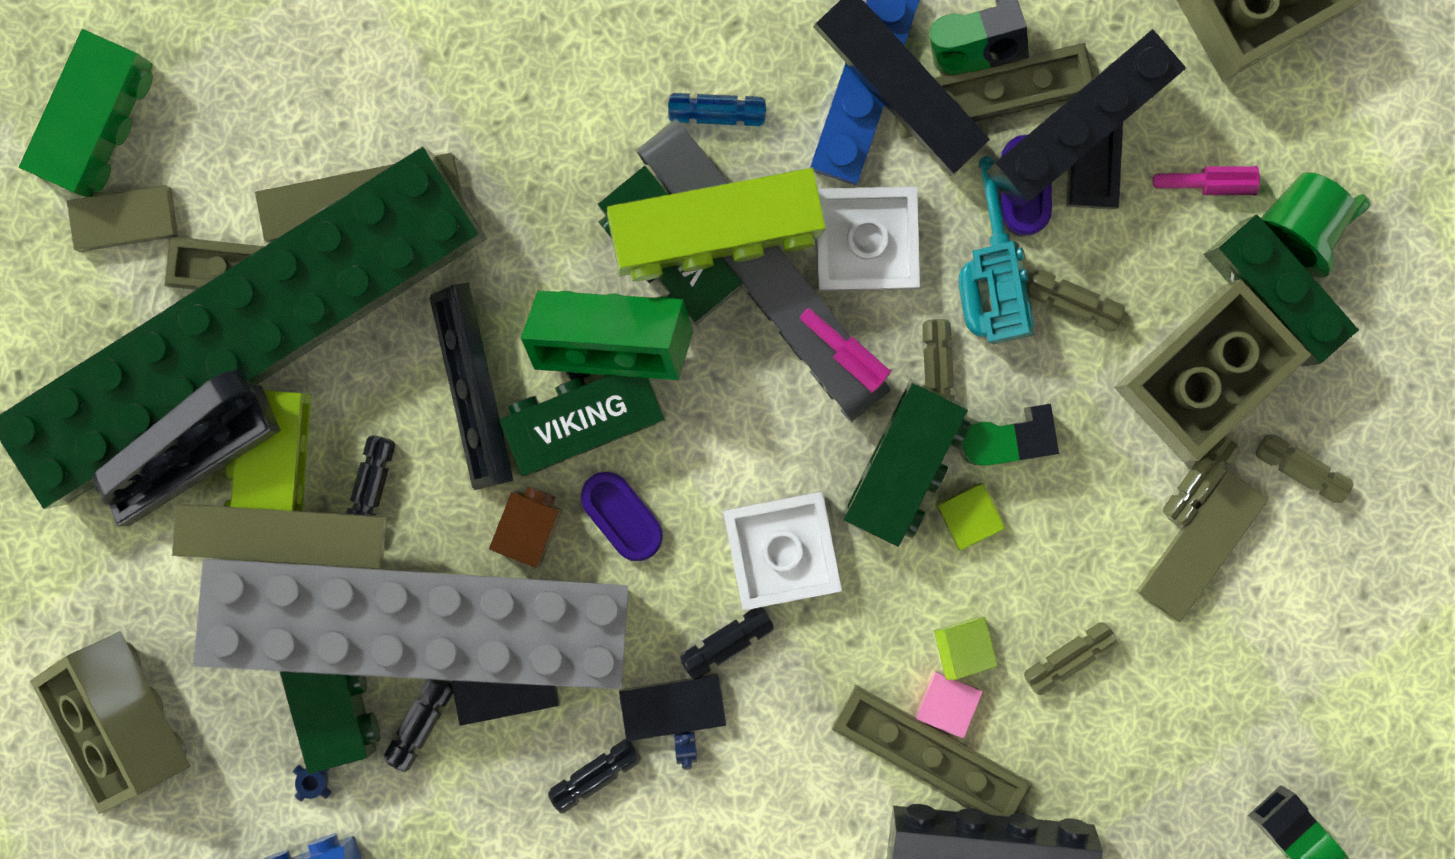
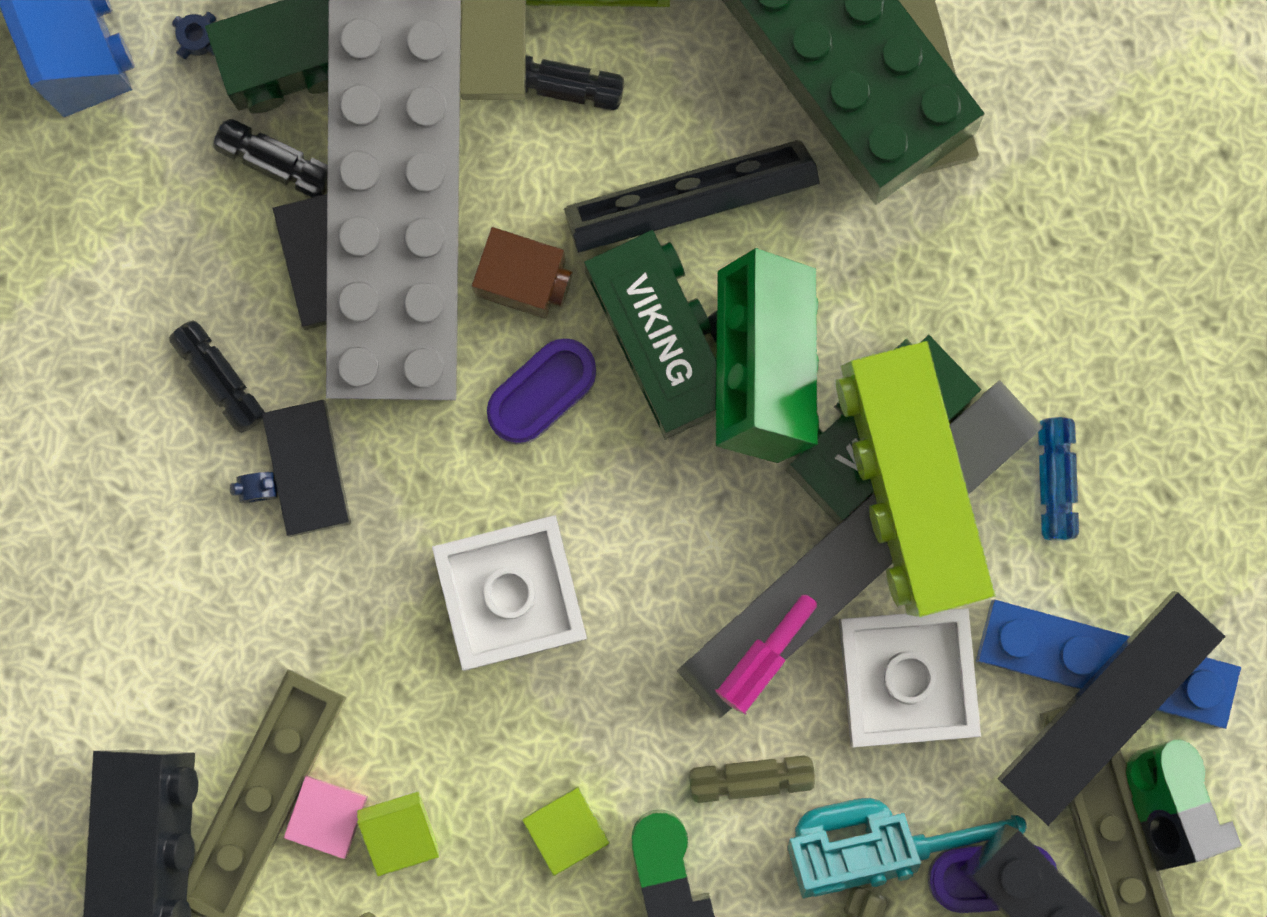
camera: 80 degrees right, 5 degrees down
(726, 642) = (390, 531): black axle -> none
(907, 463) = (628, 744): dark green brick -> none

